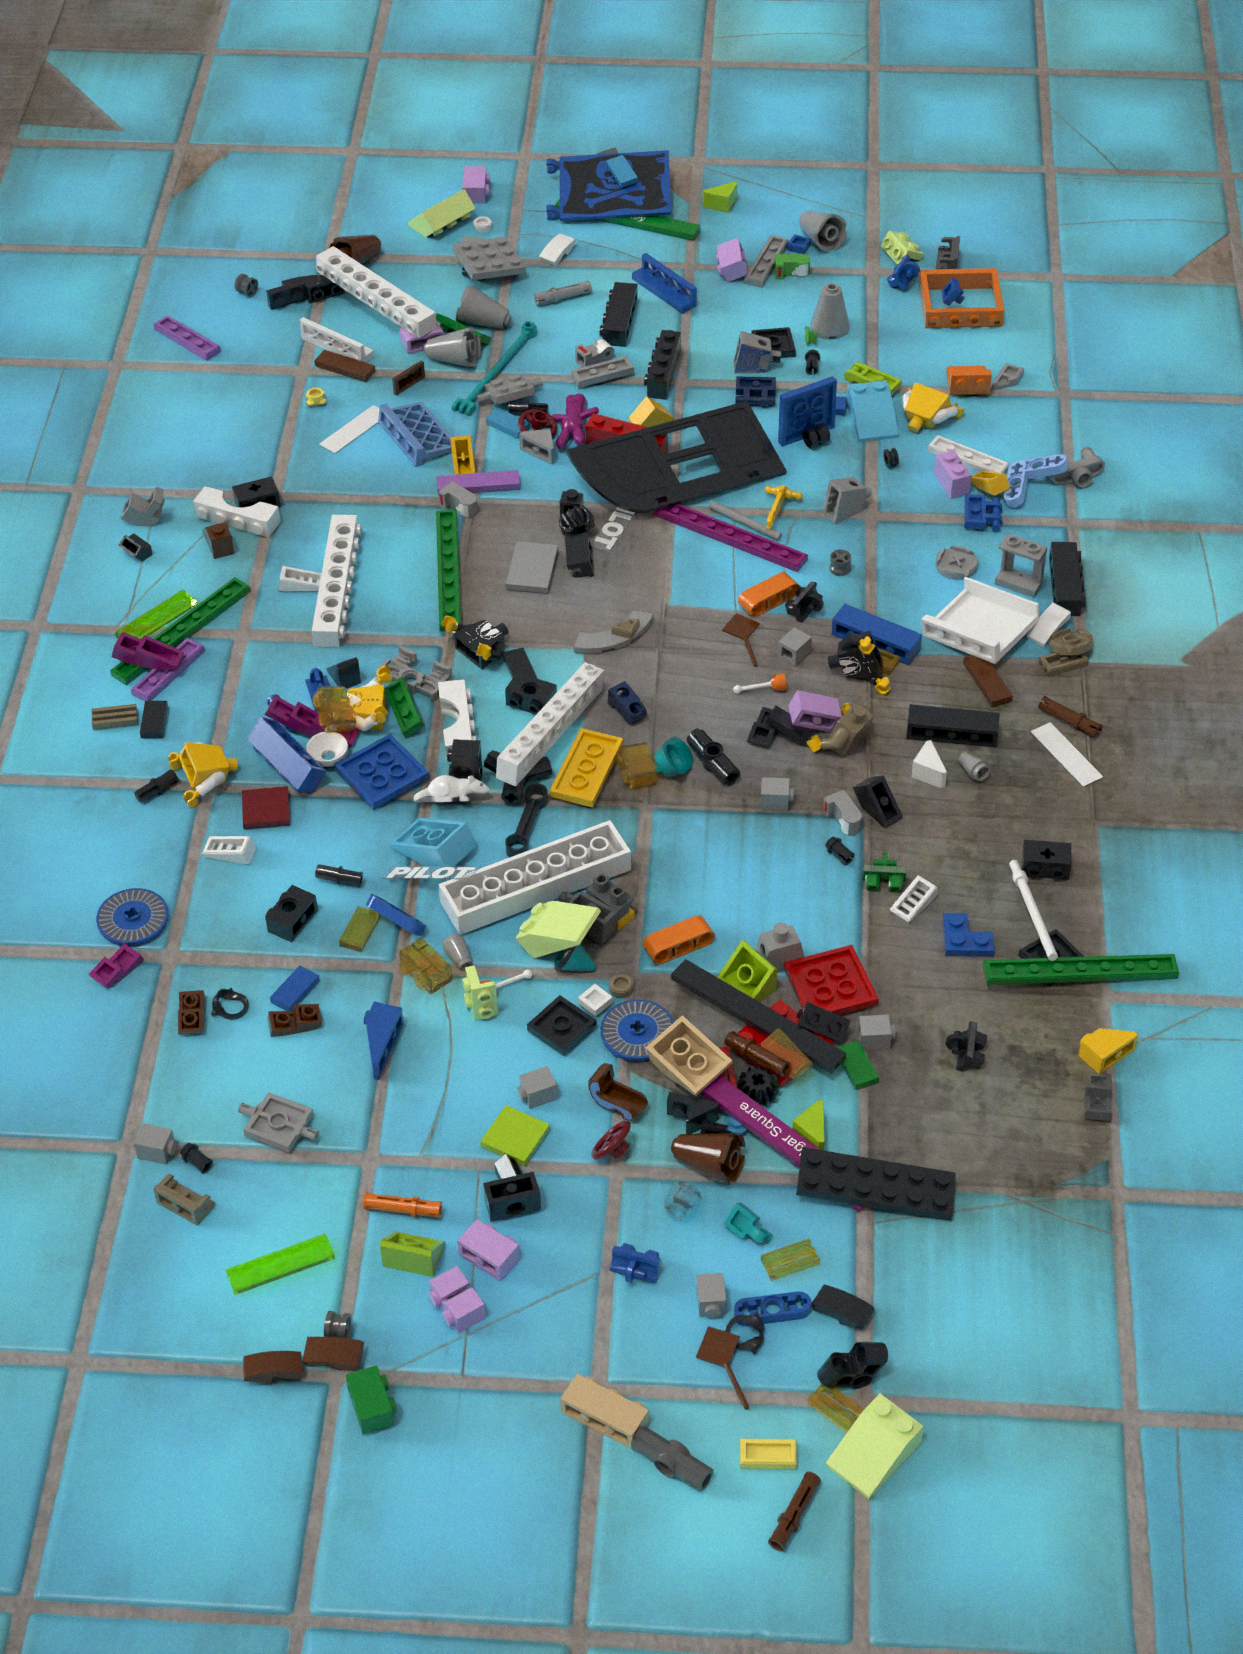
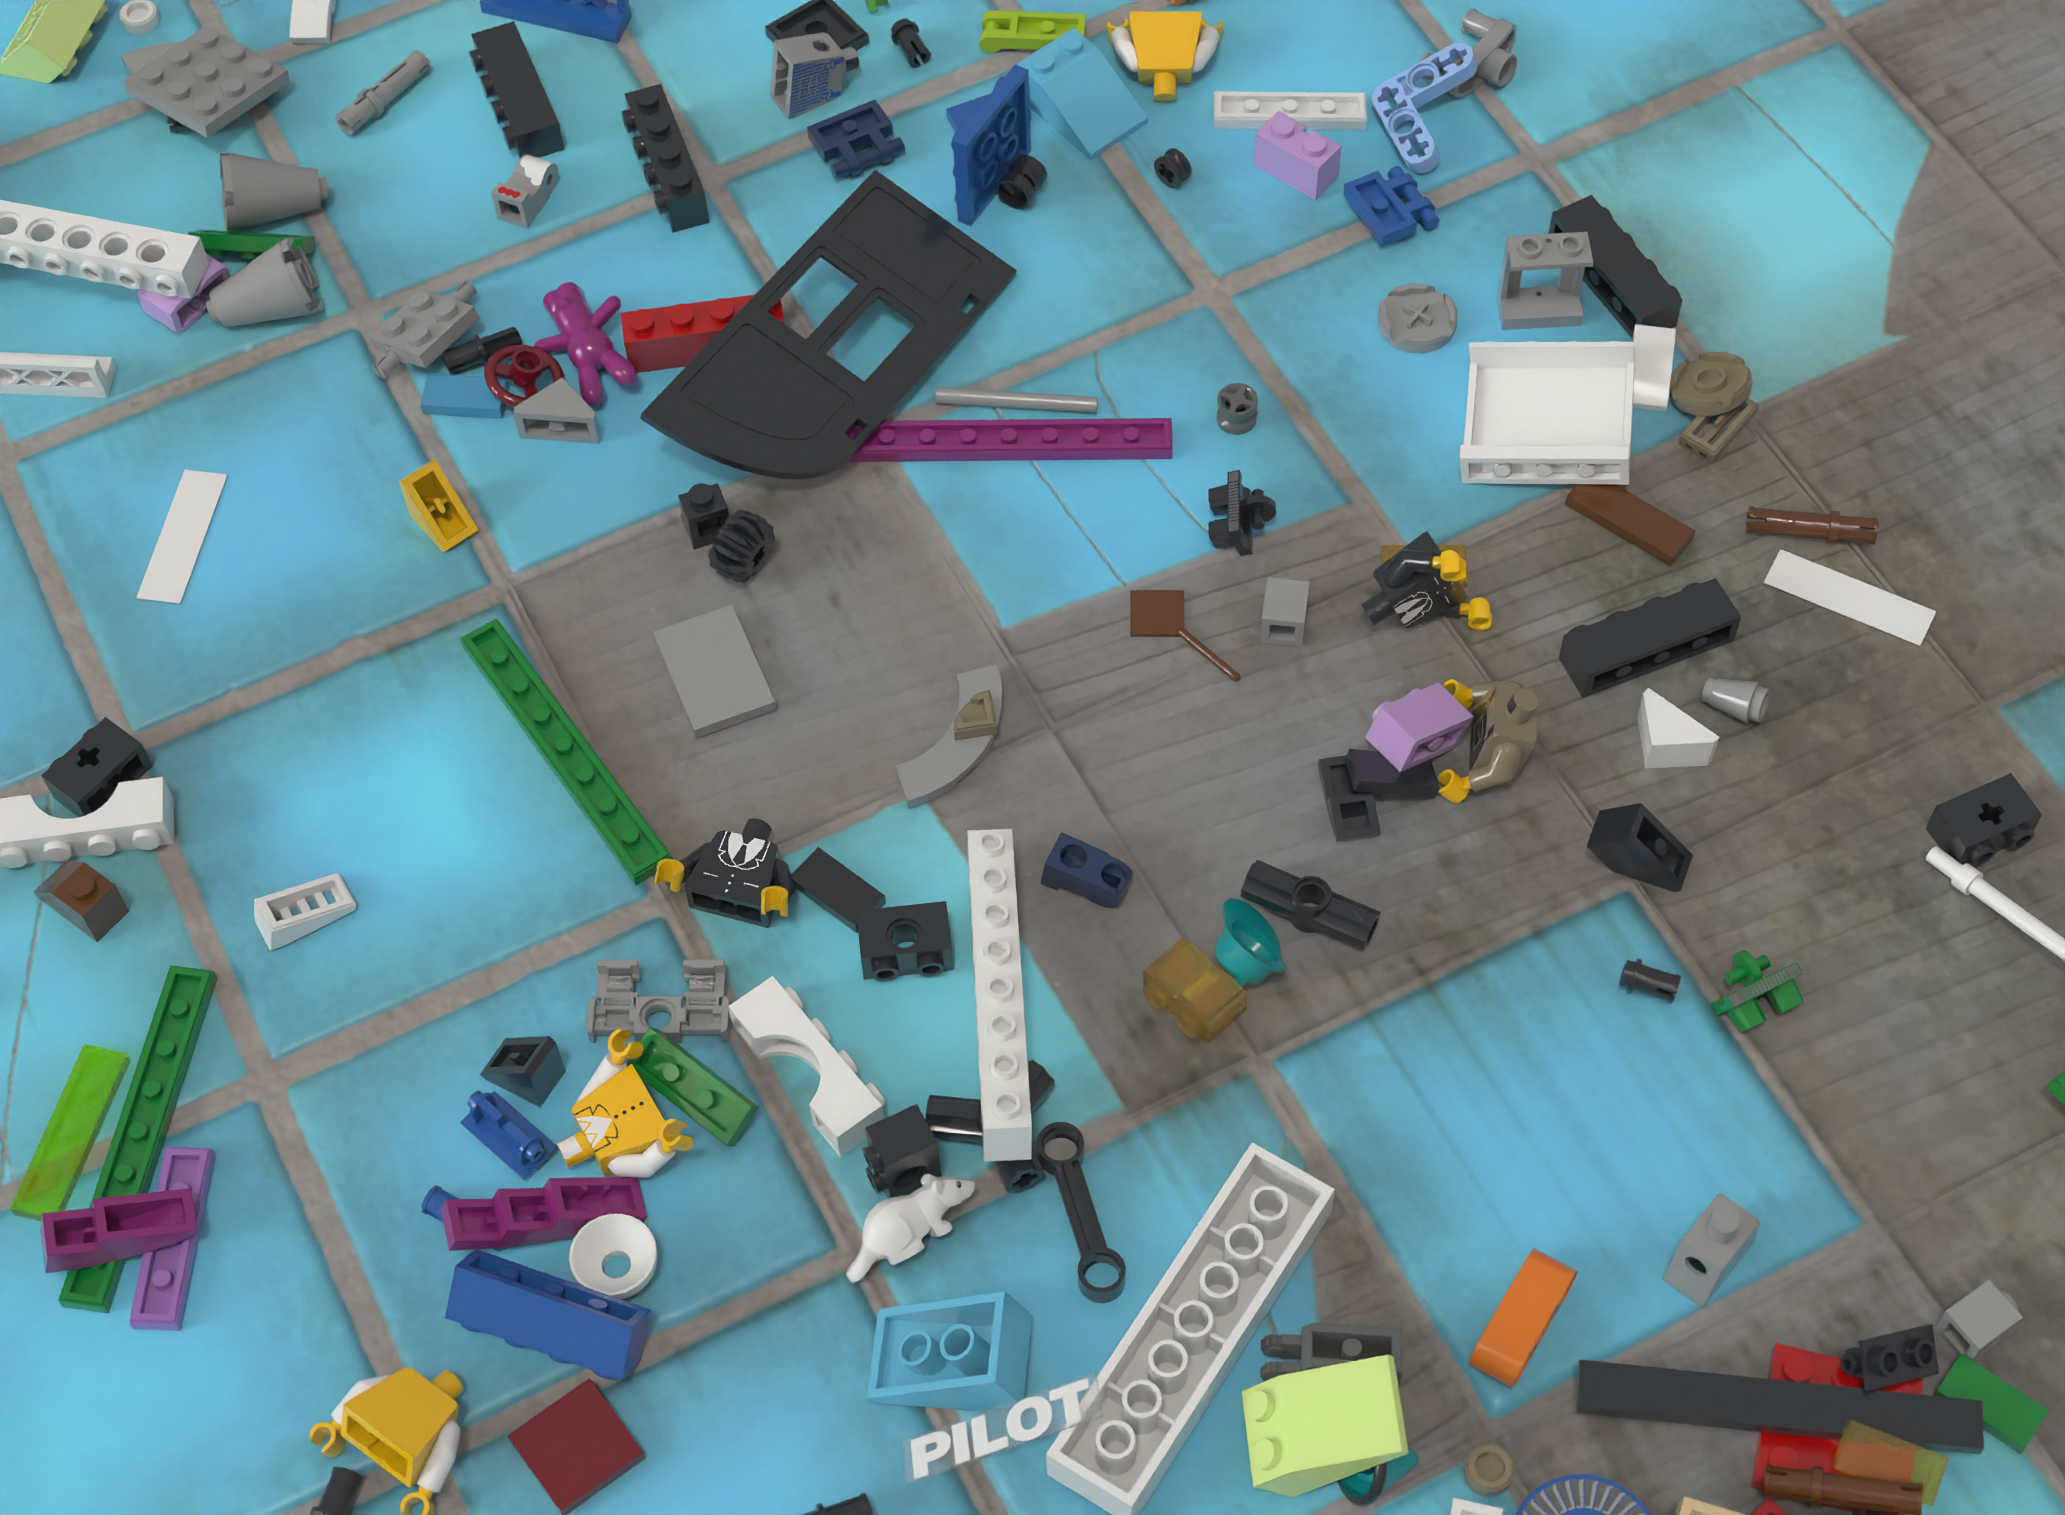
camera: 30 degrees left, 10 degrees up
(114, 716) = (125, 1388): dark tan tile -> none
(153, 719) = (220, 1364): black tile -> none
(315, 397) = (66, 504): light yellow plate -> none
(334, 709) = (582, 1170): clear yellow brick -> none
(336, 581) = (431, 1002): white brick -> none
(344, 365) = (76, 412): reddish brown tile -> none
(382, 771) = (745, 1248): blue plate -> none
(404, 435) = (292, 508): medium blue fence -> none
(408, 377) = (214, 385): reddish brown slope -> none
(458, 498) = (488, 595): light grey leg -> none
(482, 481) = (494, 542): medium lavender tile -> none
(529, 331) = (373, 200): teal hinge -> none
(579, 555) = (787, 607): black hinge -> none
(586, 767) = (1107, 1042): yellow plate -> none
(602, 371) = (564, 218): light grey plate -> none
(612, 529) = (799, 527): sticker -> none
(613, 896) = (1355, 1299): dark grey hips -> none
(650, 413) = (707, 268): yellow slope -> none
(750, 972) = (1694, 1325): lime slope -> none
(768, 594) = (1166, 528): orange beam -> none
(776, 794) = (1467, 924): light grey brick -> none
(777, 682) = (1305, 695): hinge -> none
(781, 493) = (1047, 317): yellow piece -> none
(832, 981) = (1833, 1261): red plate -> none
(844, 498) = (1163, 268): light grey torso -> none
(844, 811) = (1604, 900): light grey leg -> none
(886, 634) = (1377, 516): blue brick -> none
(918, 884) = (1841, 979): white slope -> none
(961, 942) = (1963, 1054): blue plate -> none
(990, 482) = (1368, 141): yellow slope -> none

